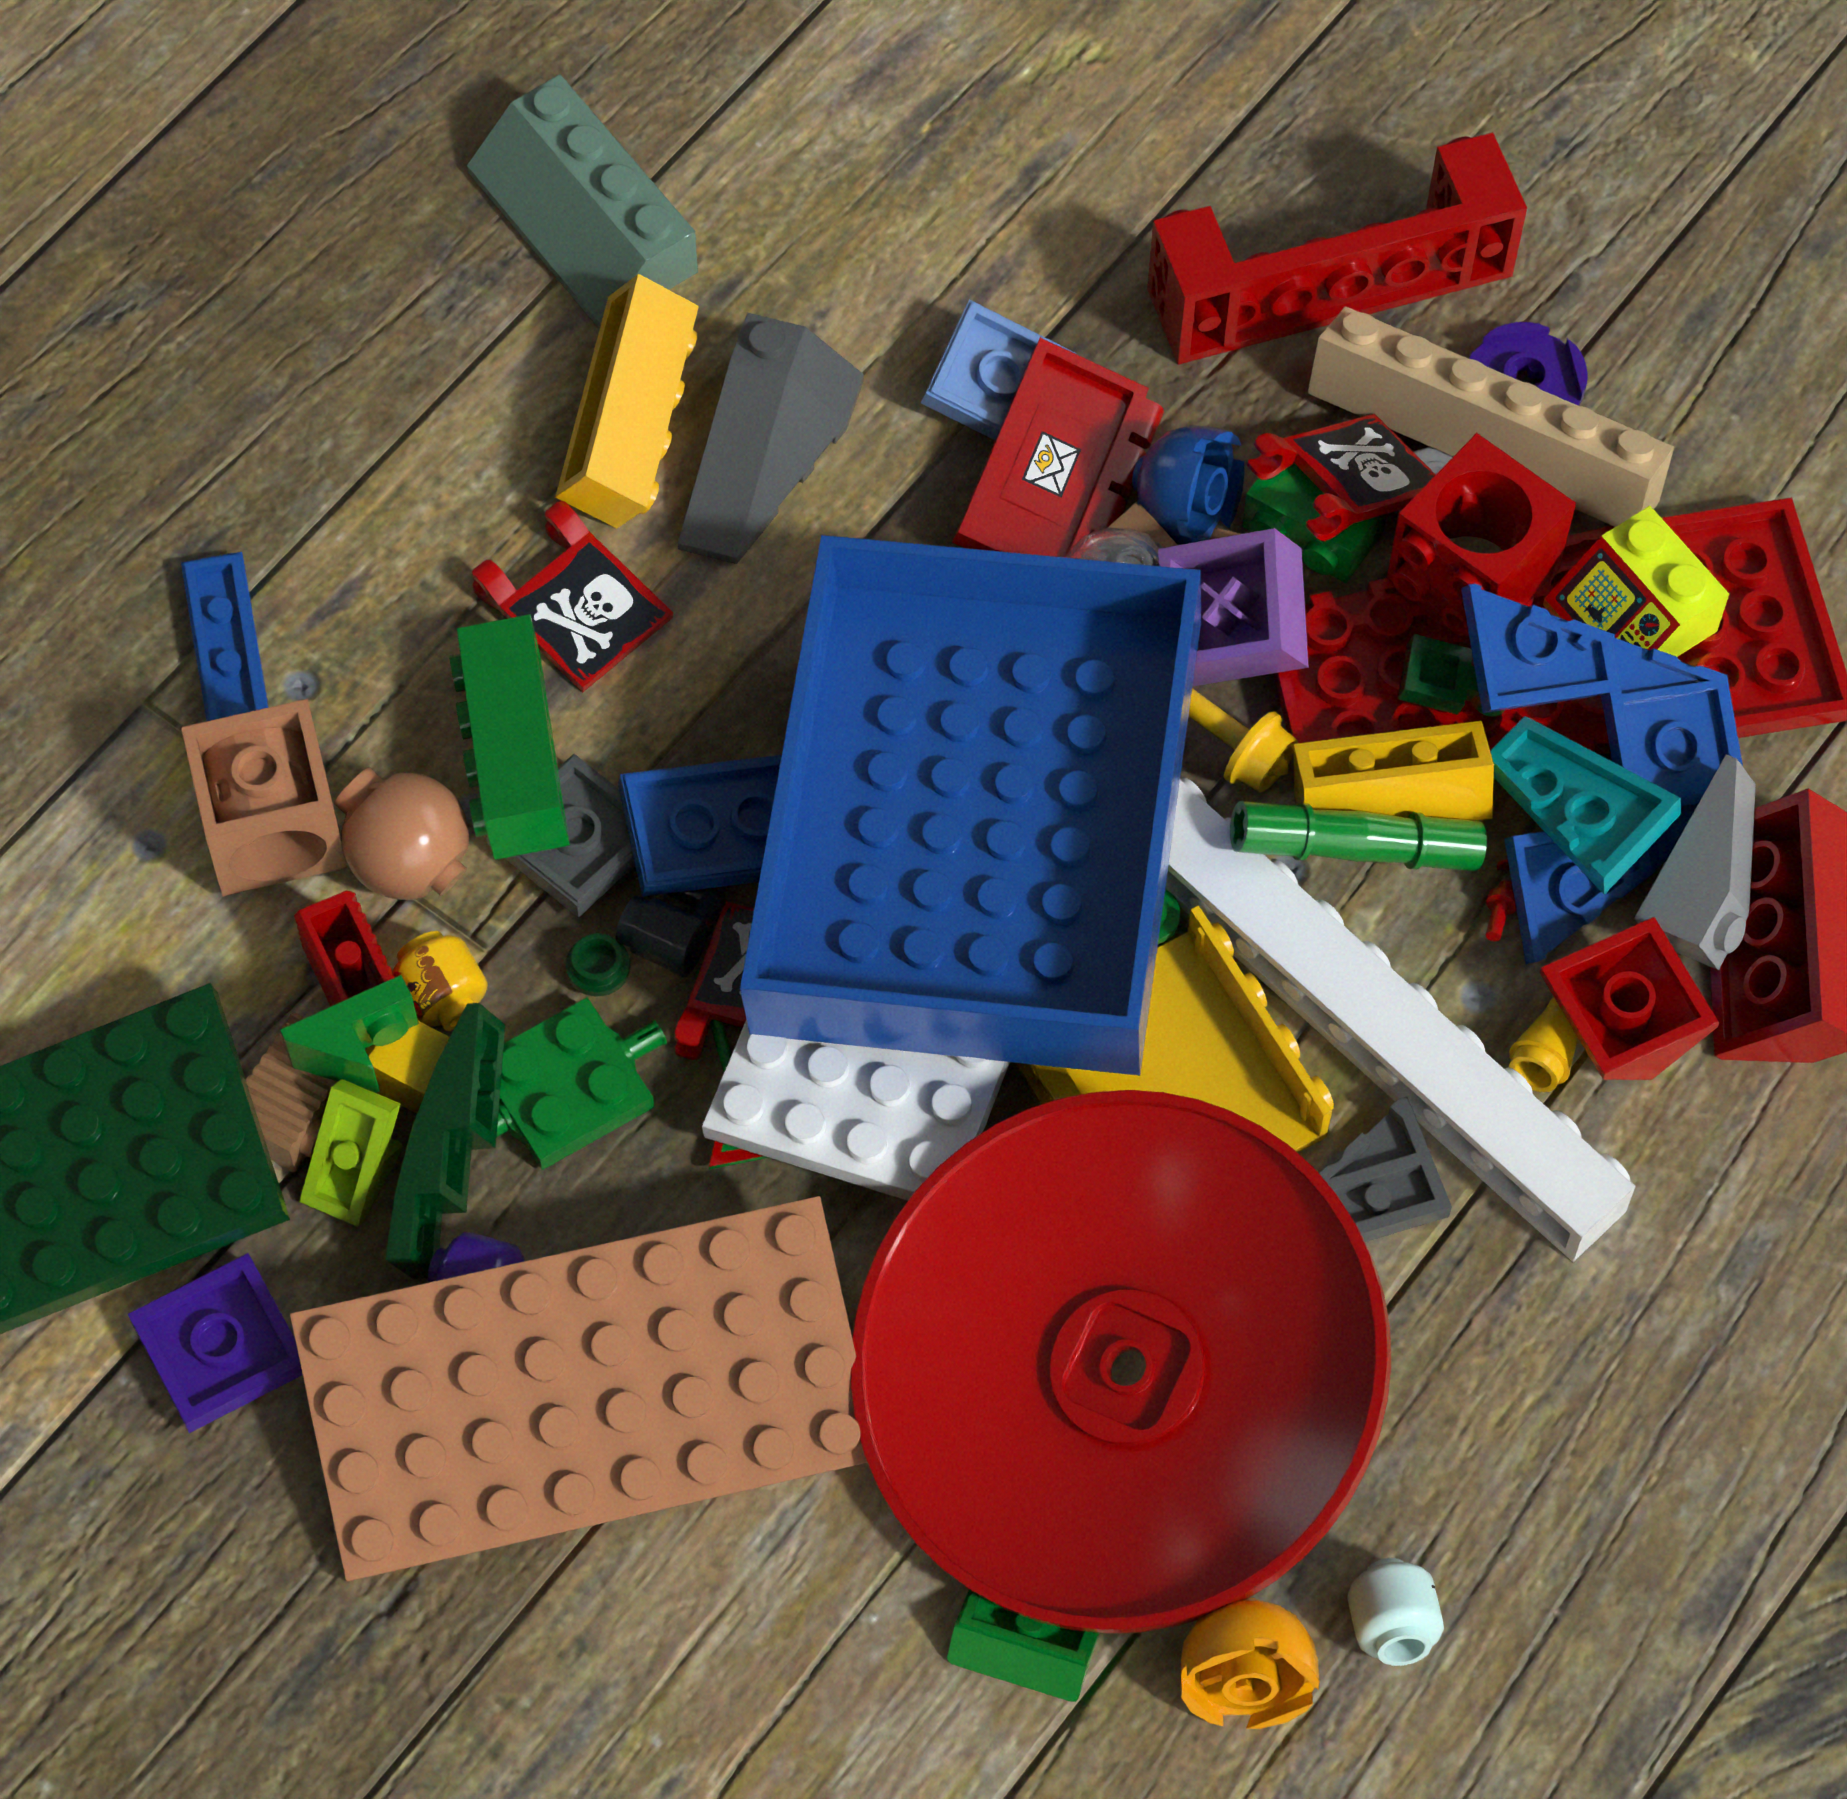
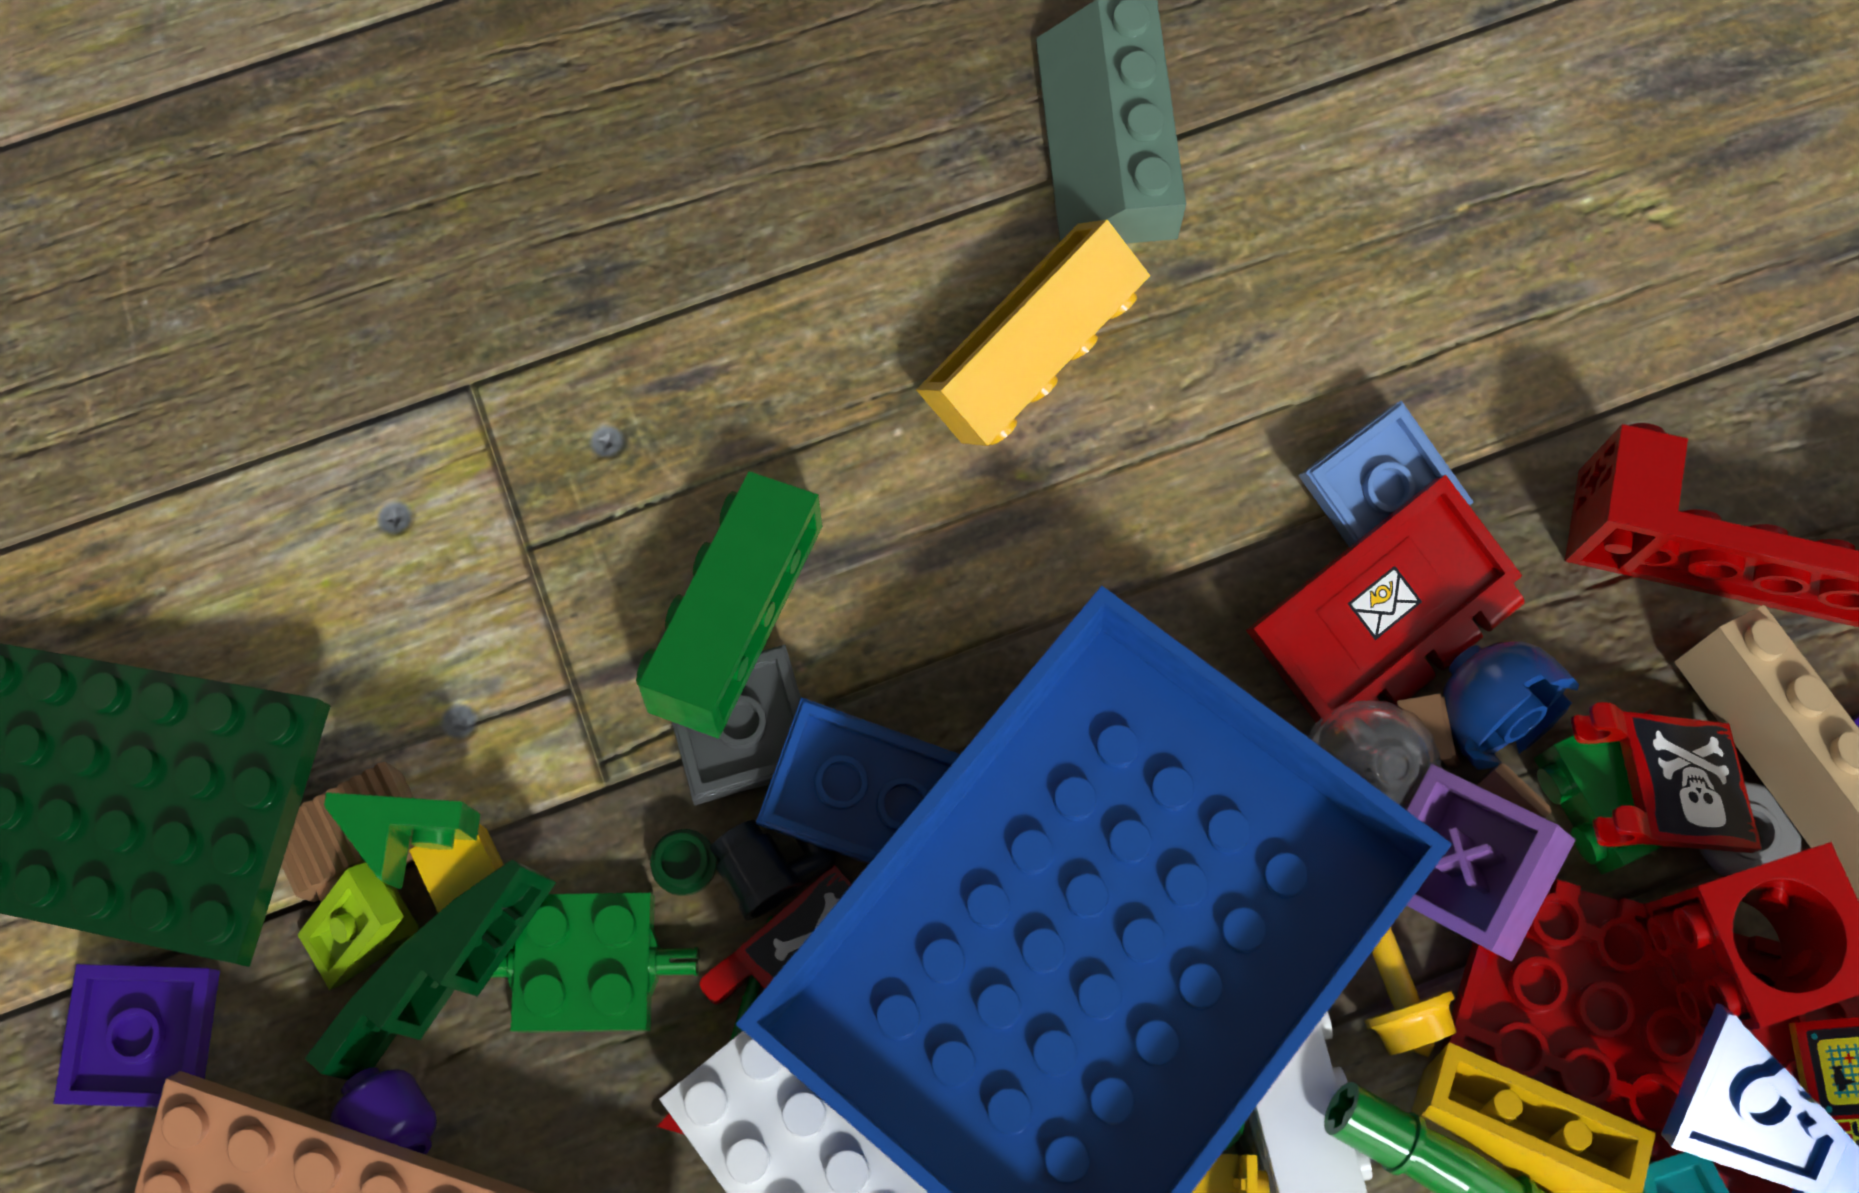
camera: 35 degrees right, 10 degrees up
(224, 635) = (555, 394): blue tile -> none
(263, 797) = (479, 541): nougat brick -> none
(341, 947) = (460, 741): red brick -> none
(403, 834) = (579, 643): nougat brick -> none
(440, 977) = (531, 801): yellow head -> none
(581, 604) = (883, 503): flag -> none
(772, 421) = (1158, 416): dark grey wedge -> none
(1439, 676) = (1640, 1052): dark green plate -> none

